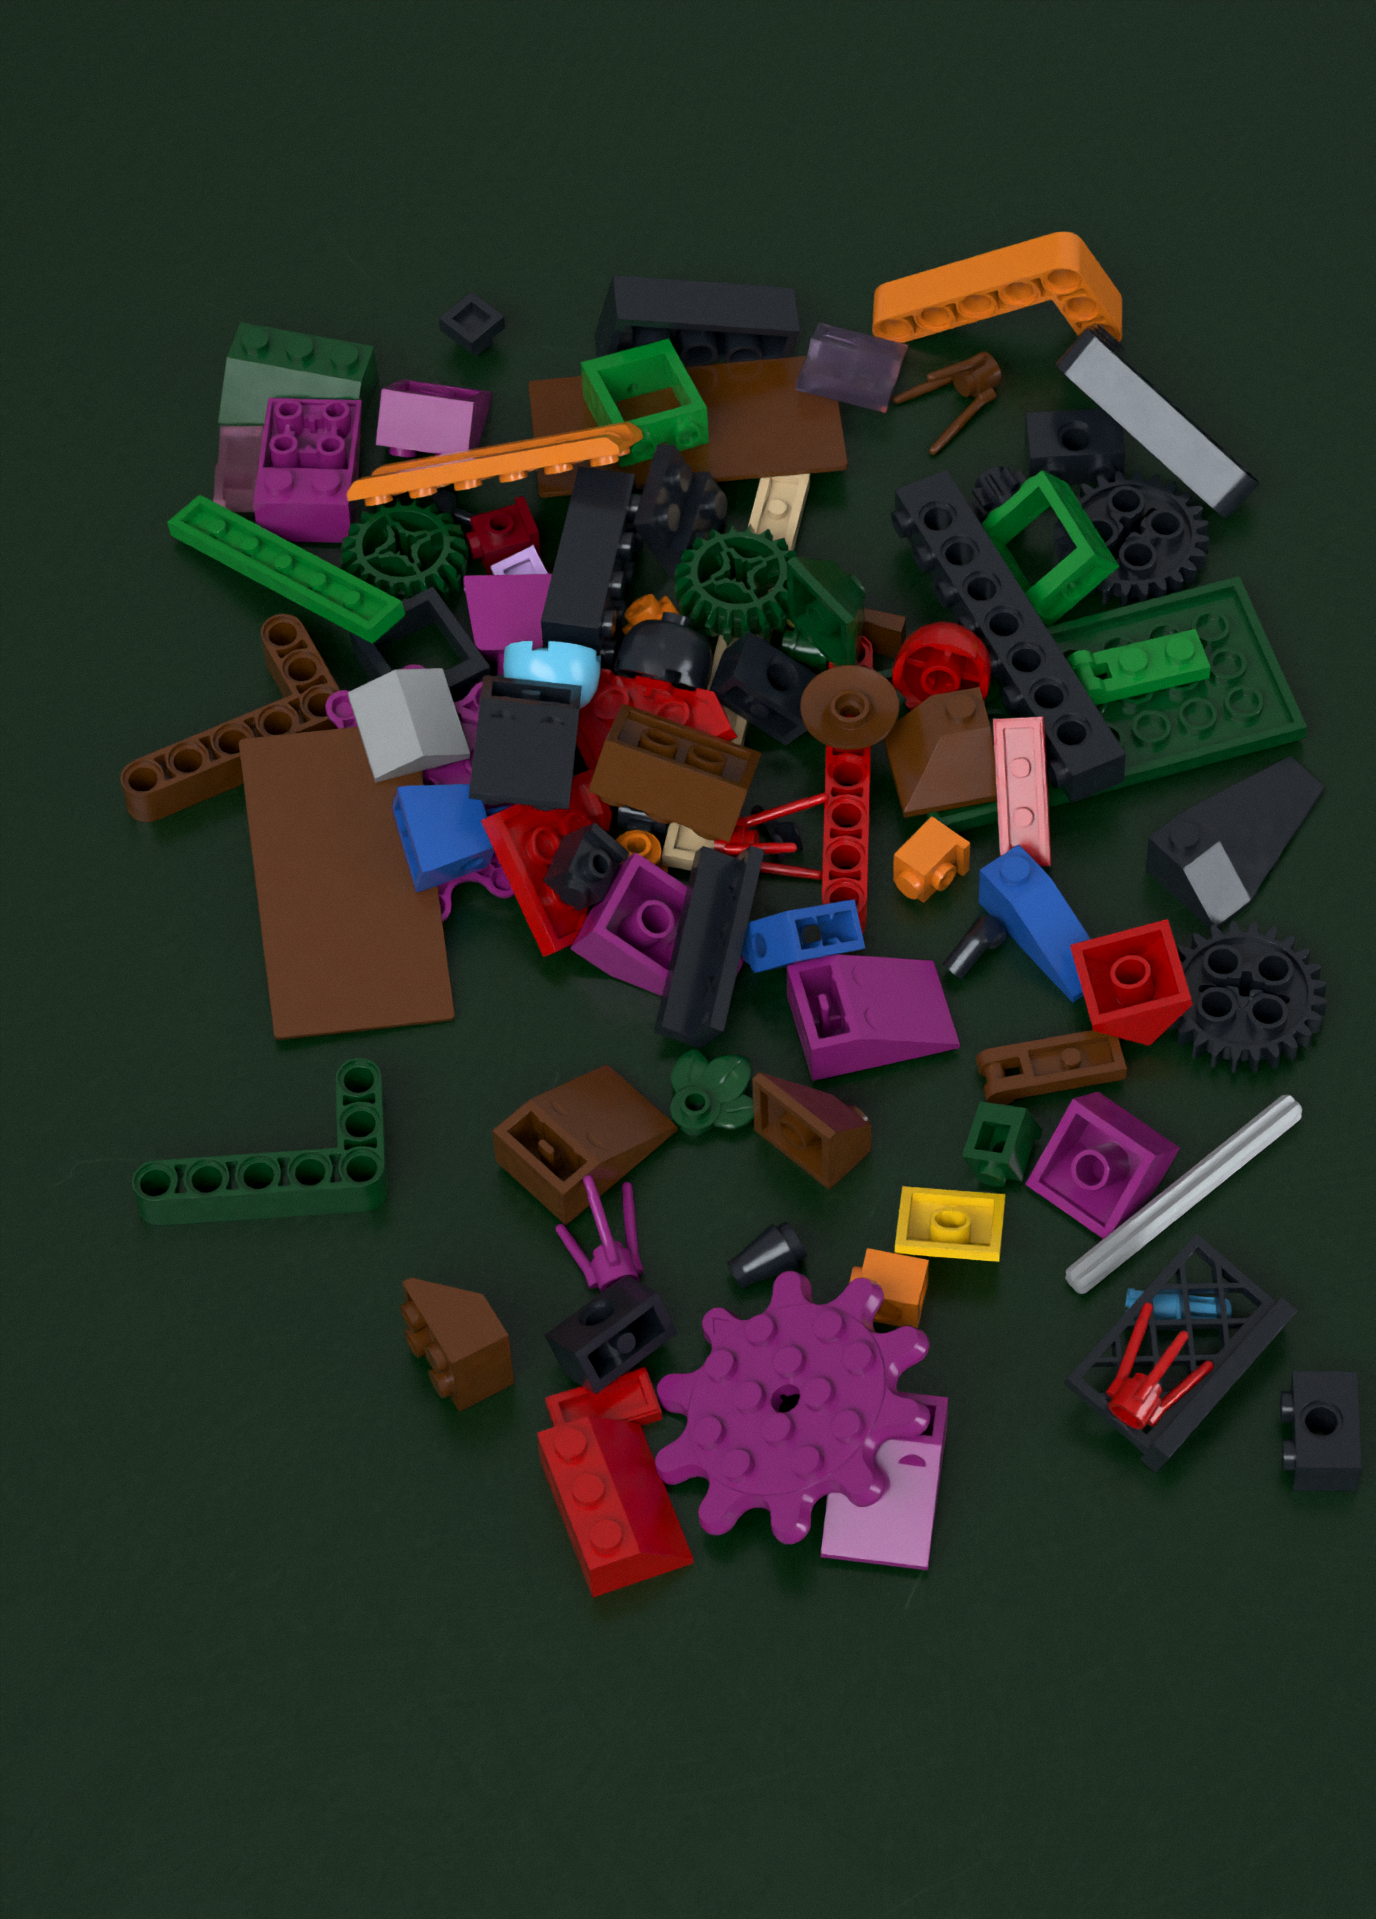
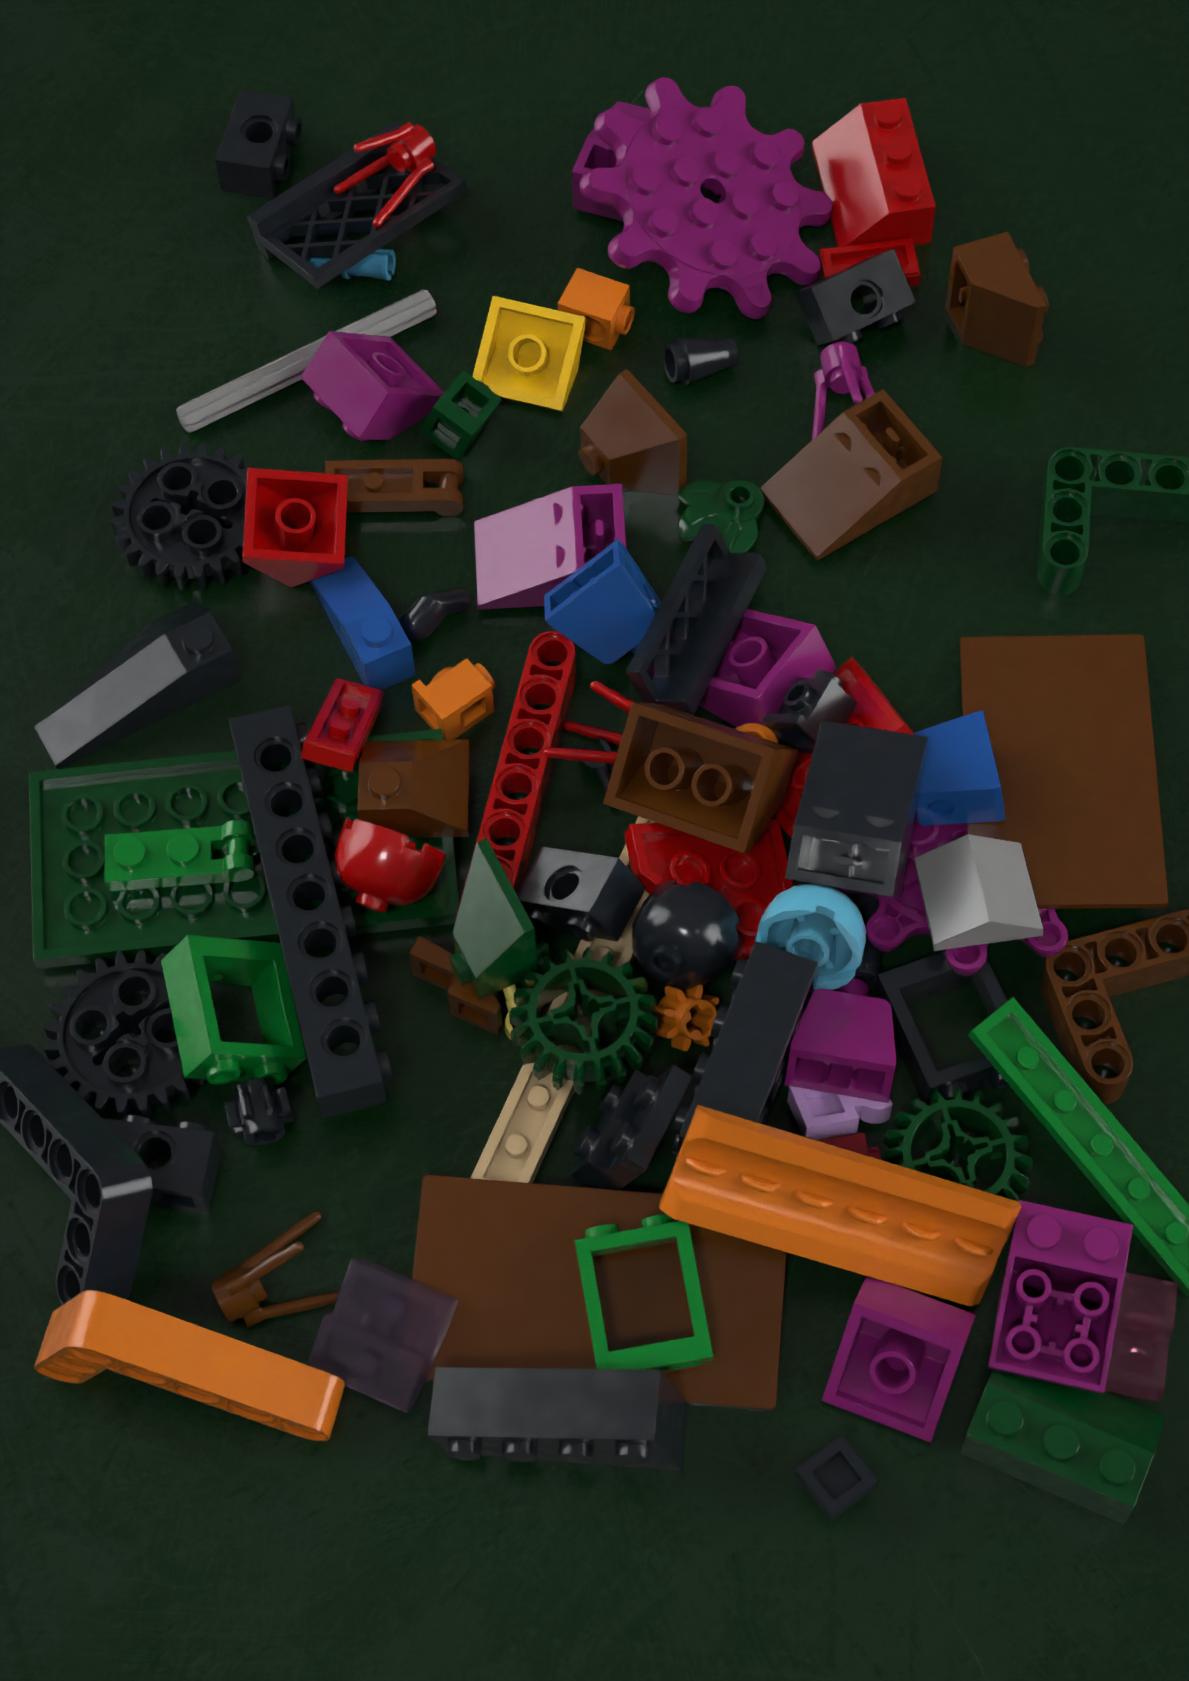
camera: 170 degrees left, 5 degrees up
(845, 692) = (495, 805): reddish brown dish -> none

